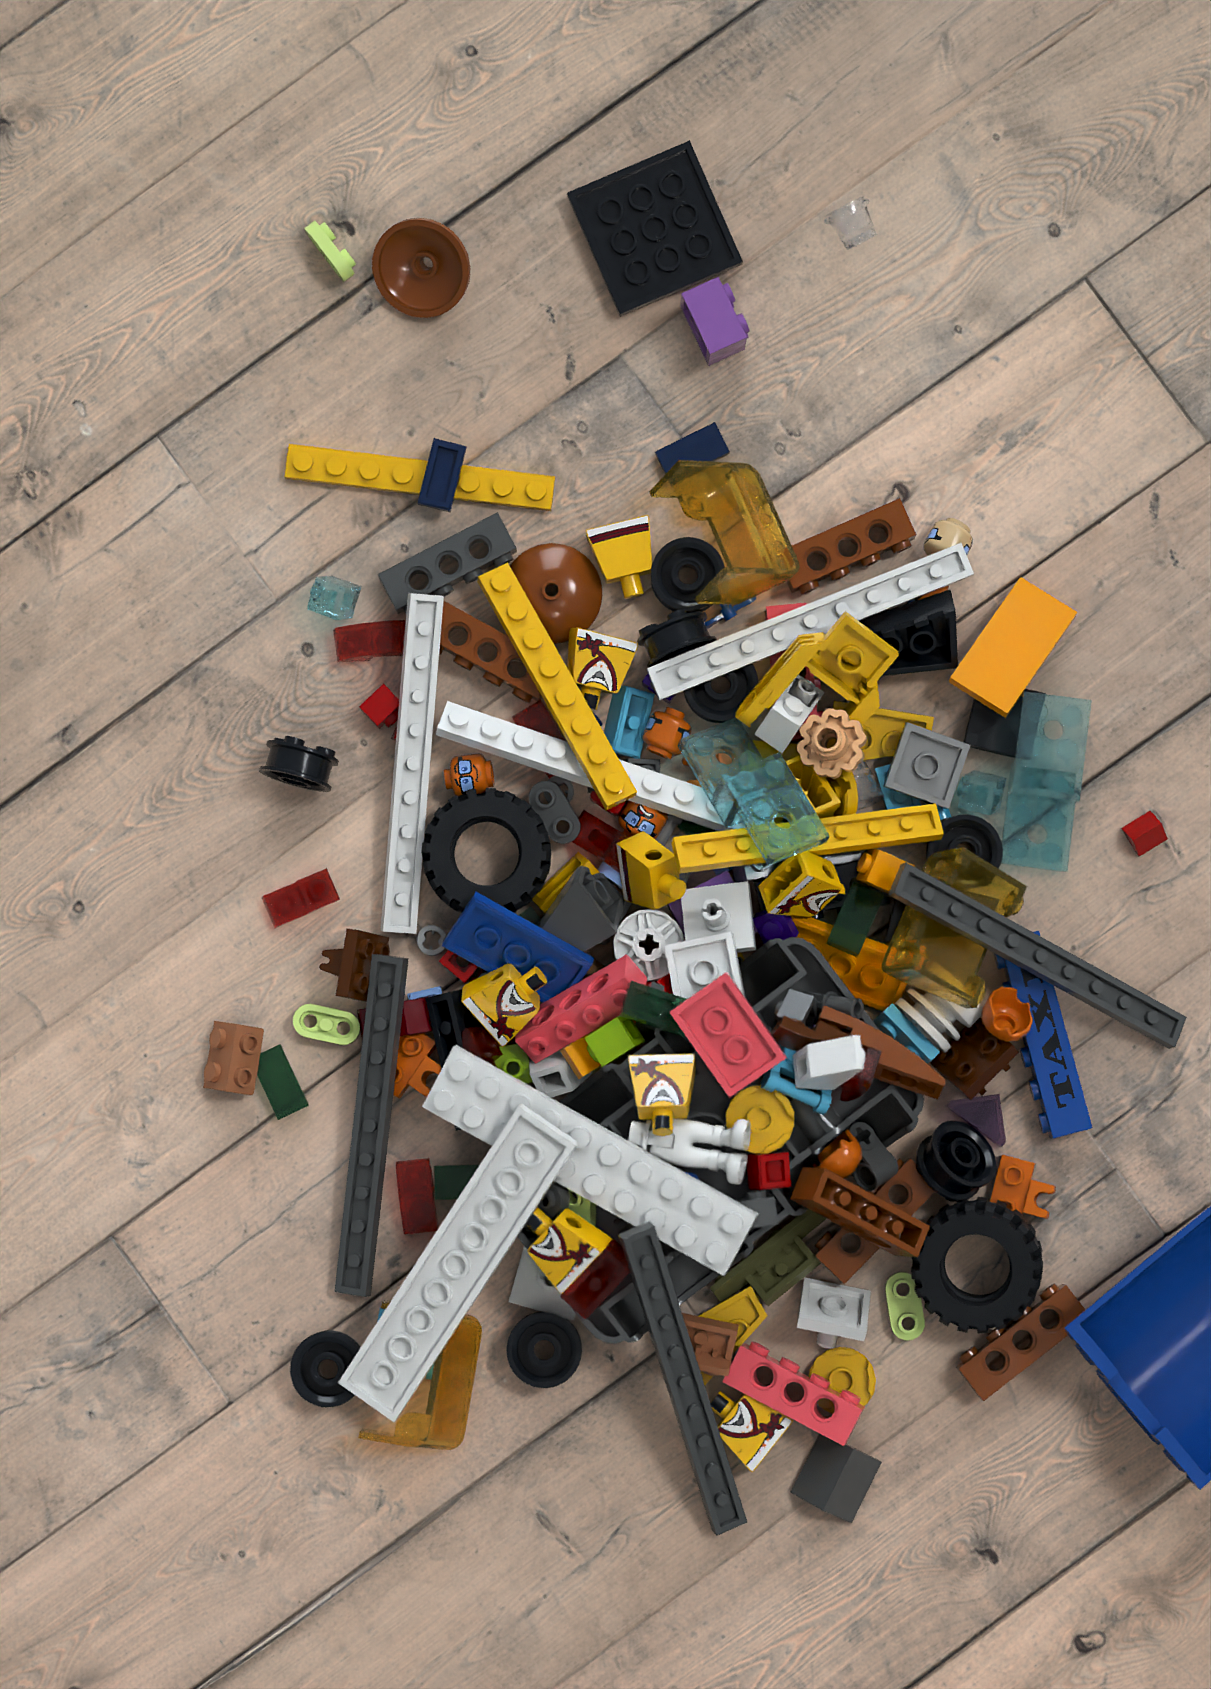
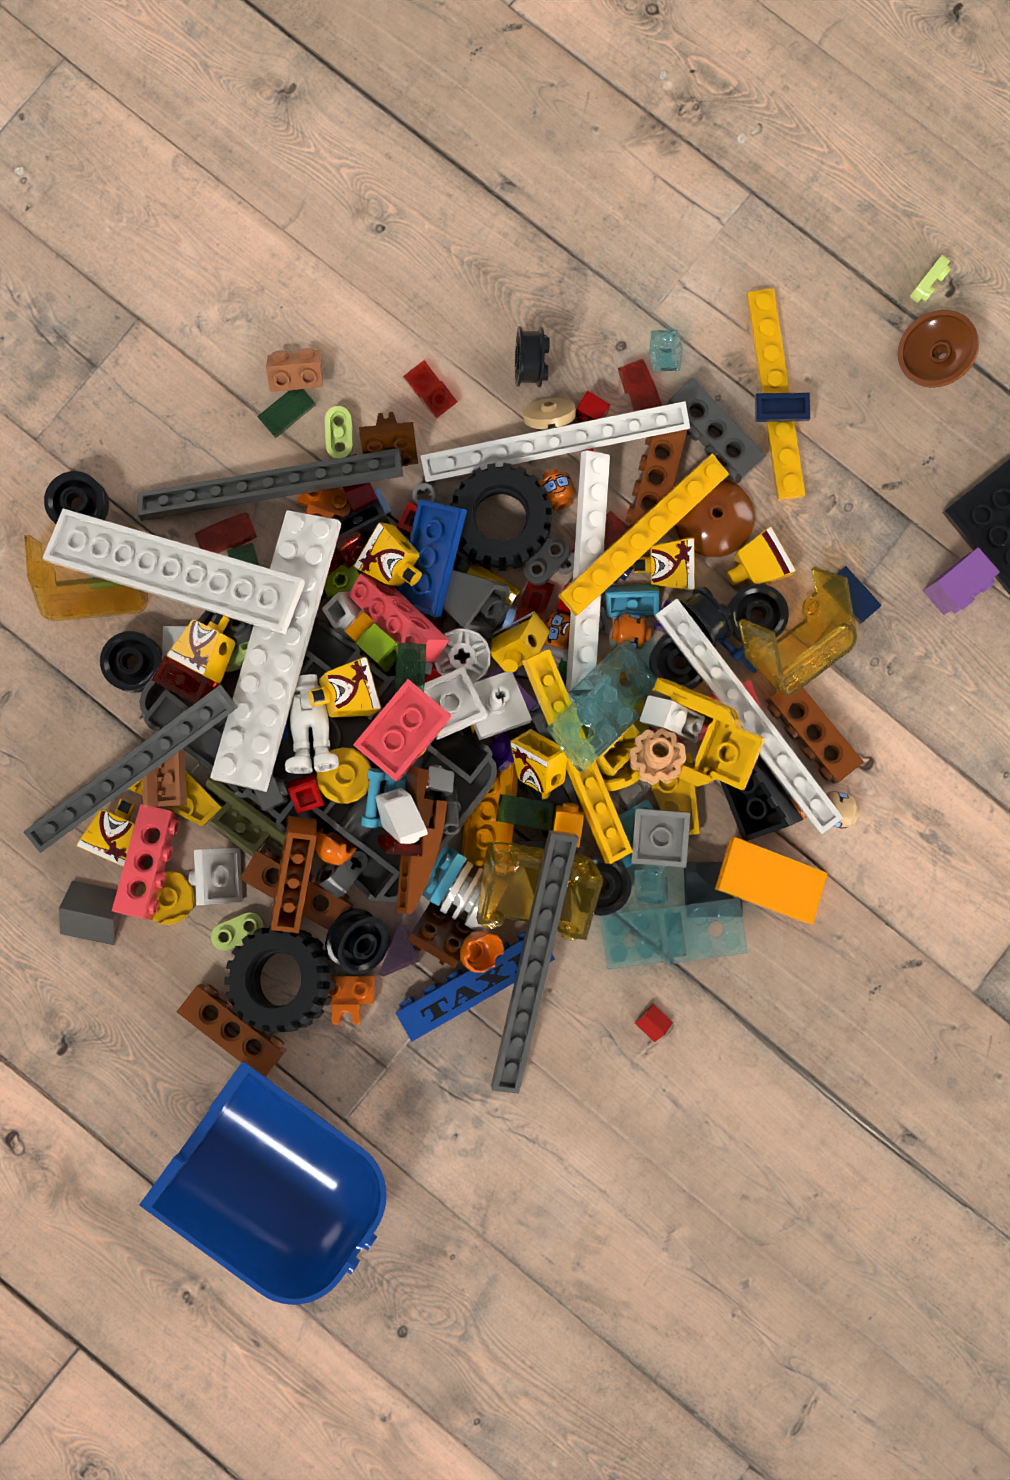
camera: 70 degrees right, 0 degrees up
(373, 760) = (549, 411): none -> tan plate

